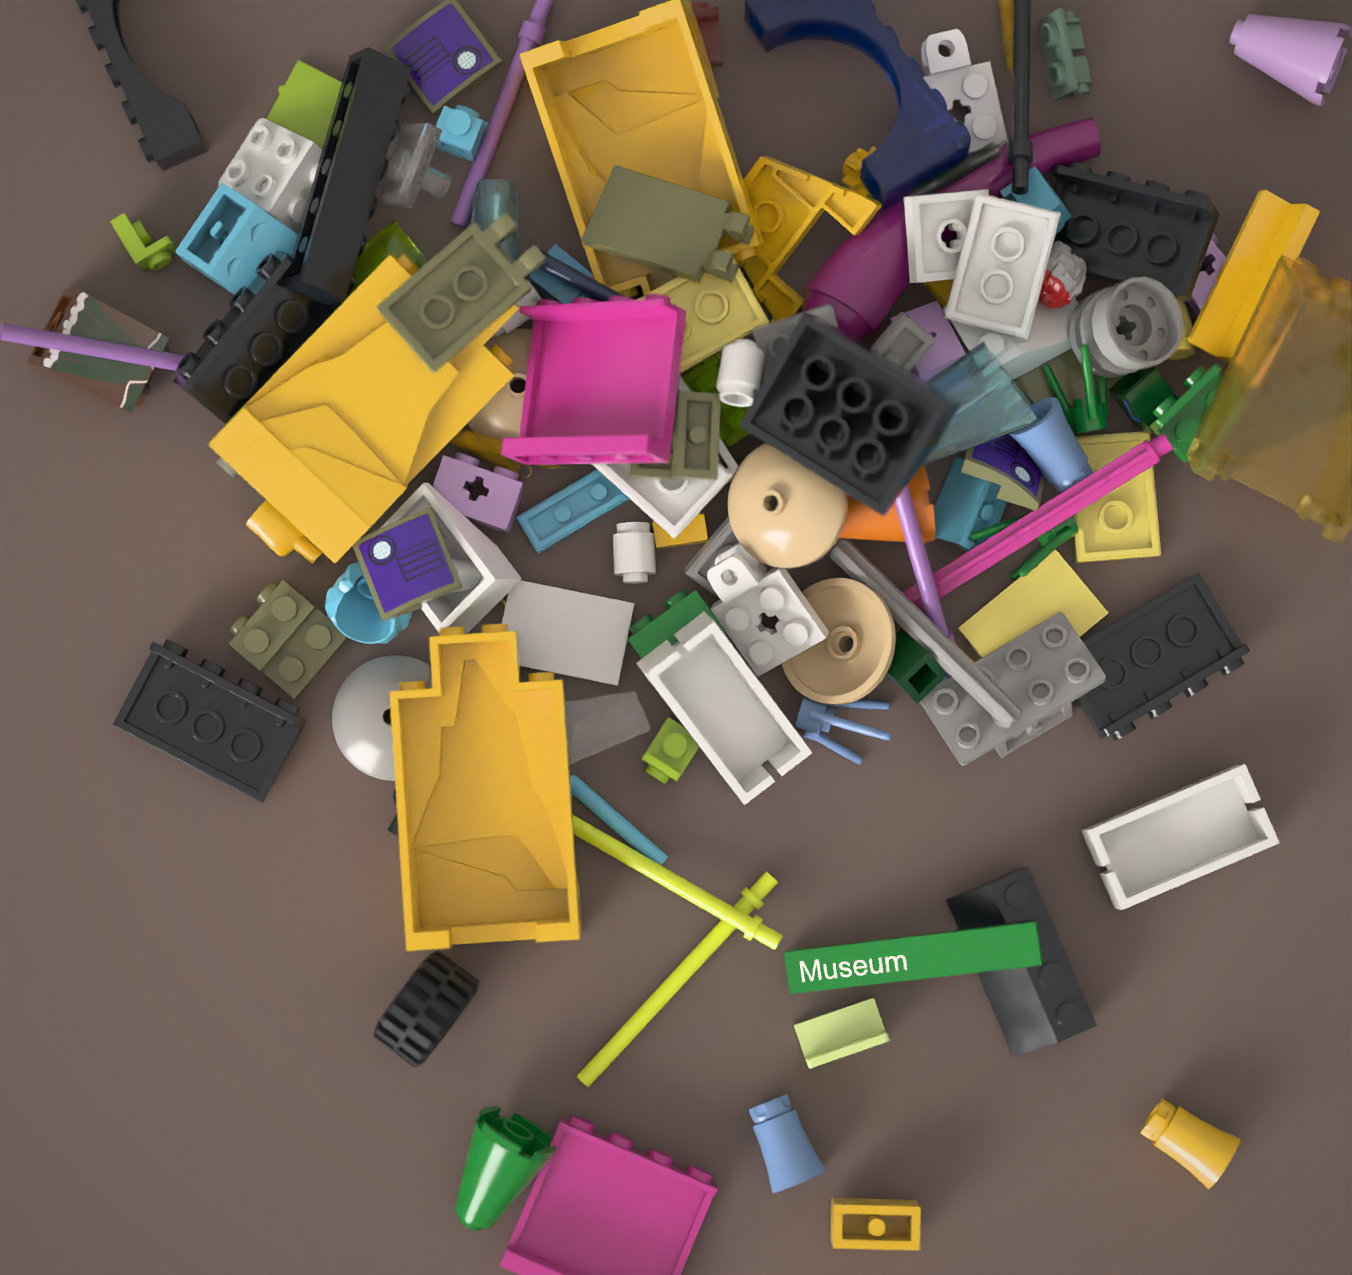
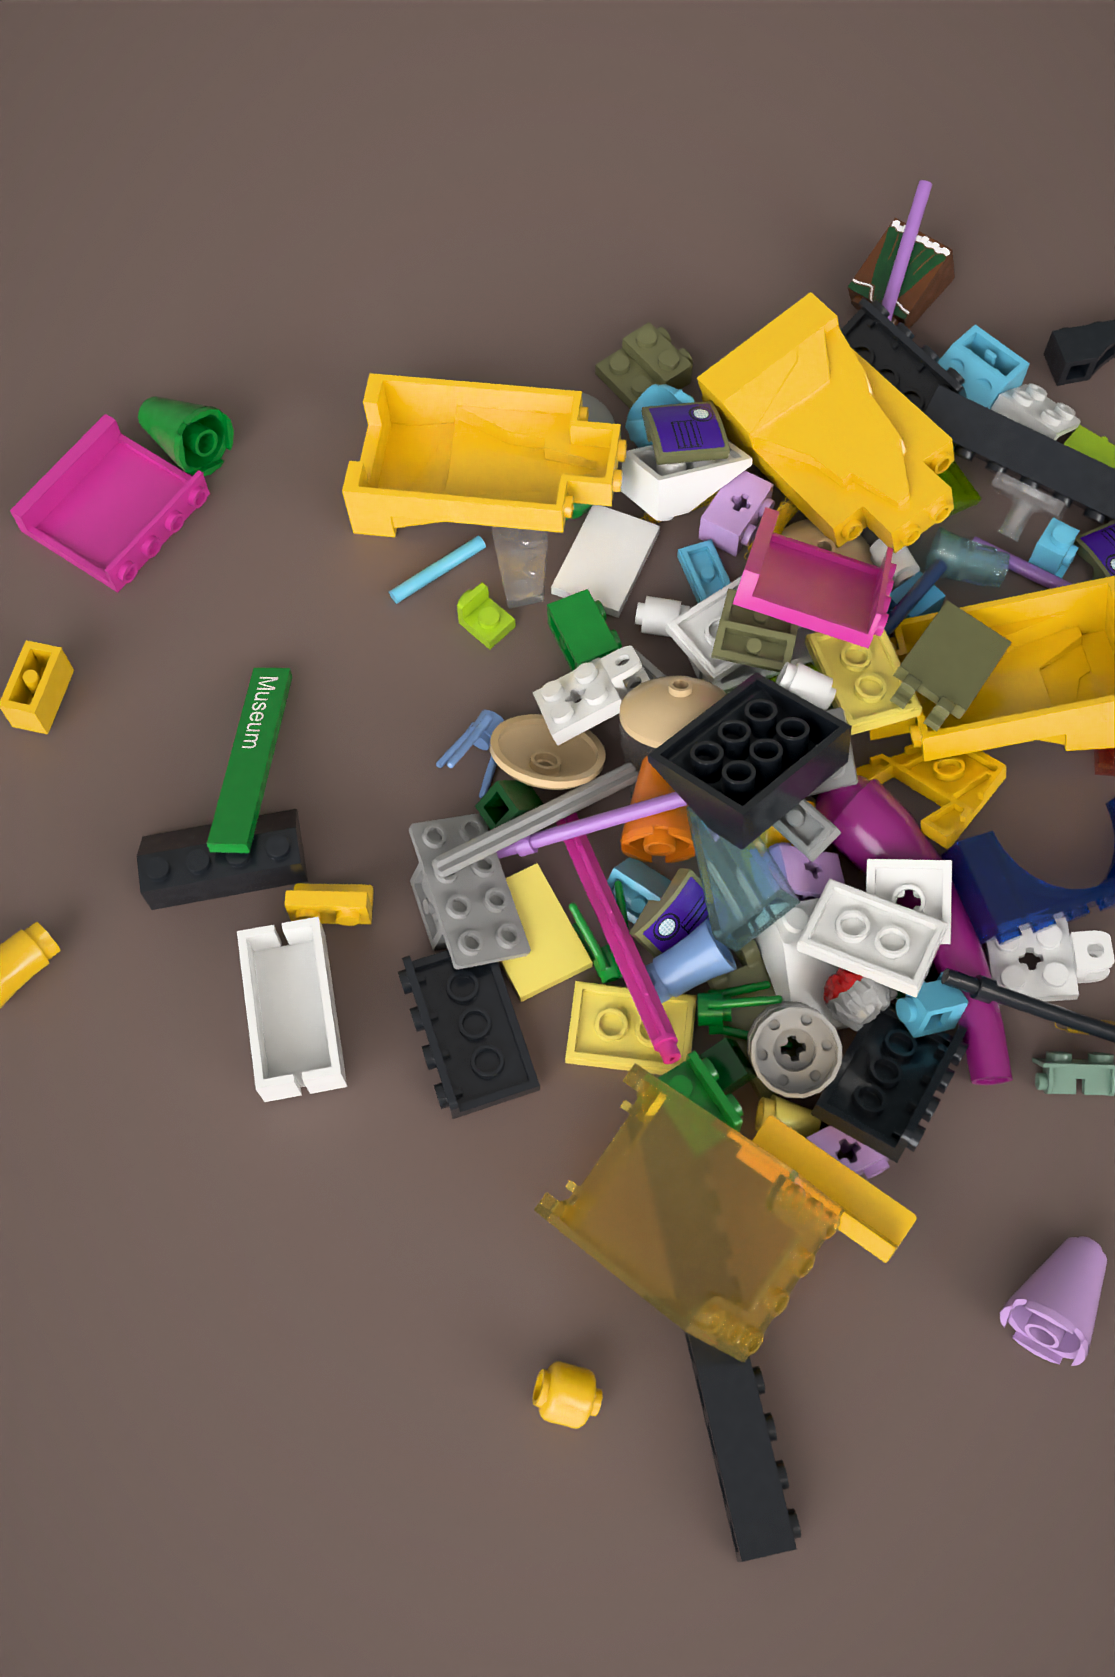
camera: 100 degrees right, 20 degrees down
(136, 238) = (988, 315): lime bracket -> none
(210, 720) = (591, 309): black bracket -> none
(426, 1008) = (322, 393): black tyre -> none
(460, 292) = (912, 481): olive tile -> none
(692, 534) = (672, 657): yellow piece -> none
(724, 707) = (508, 642): white piece -> none
(750, 926) = (318, 641): neon yellow bar -> none
(751, 899) = (342, 654): neon yellow bar -> none
(784, 1144) = (128, 636): medium blue plant -> none
(841, 1032) = (206, 701): yellowish green panel -> none
(945, 183) = (984, 940): piece -> none
(1051, 830) = (331, 903): none -> yellow bracket

